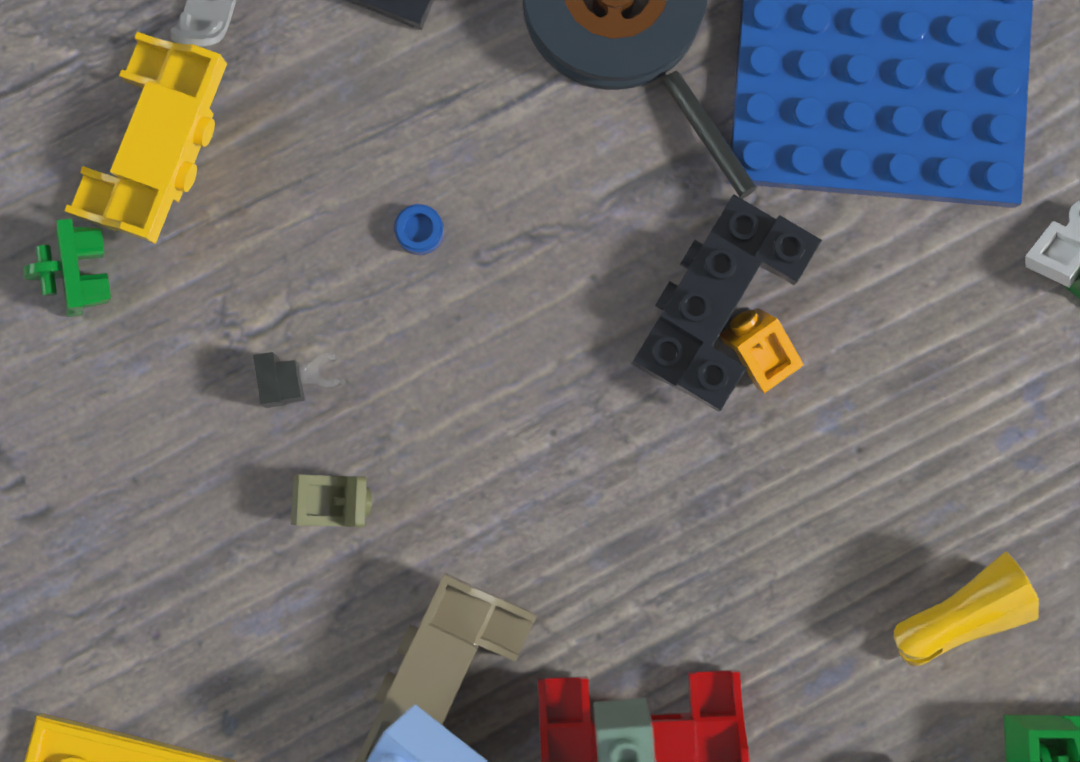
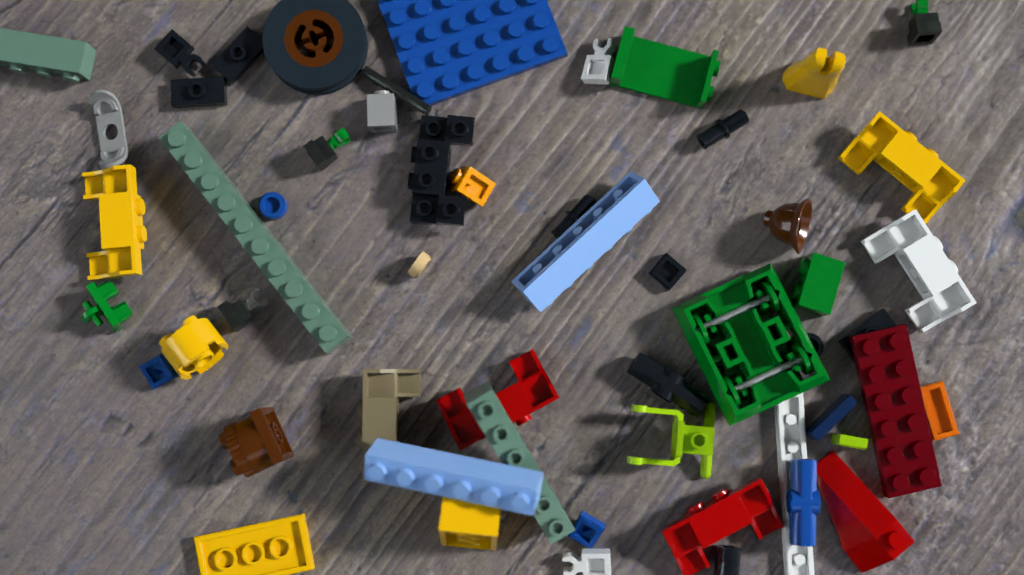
camera: 25 degrees left, 0 degrees up
(109, 413) = (158, 371): none -> blue tile
(182, 403) = (193, 347): none -> yellow brick
(210, 612) = (256, 442): none -> reddish brown piece
(330, 500) = (290, 361): olive bracket -> none
(367, 270) = (255, 237): none -> sand green brick
(542, 178) = (323, 151): none -> pearl dark grey piece
(615, 441) = (419, 265): none -> tan tile
(670, 158) = (382, 112): none -> light grey brick
(907, 484) = (573, 215): none -> black axle
(913, 533) = (586, 241): none -> light blue brick
(985, 606) = (637, 260): yellow piece -> none
(1023, 649) = (667, 271): none -> black tile

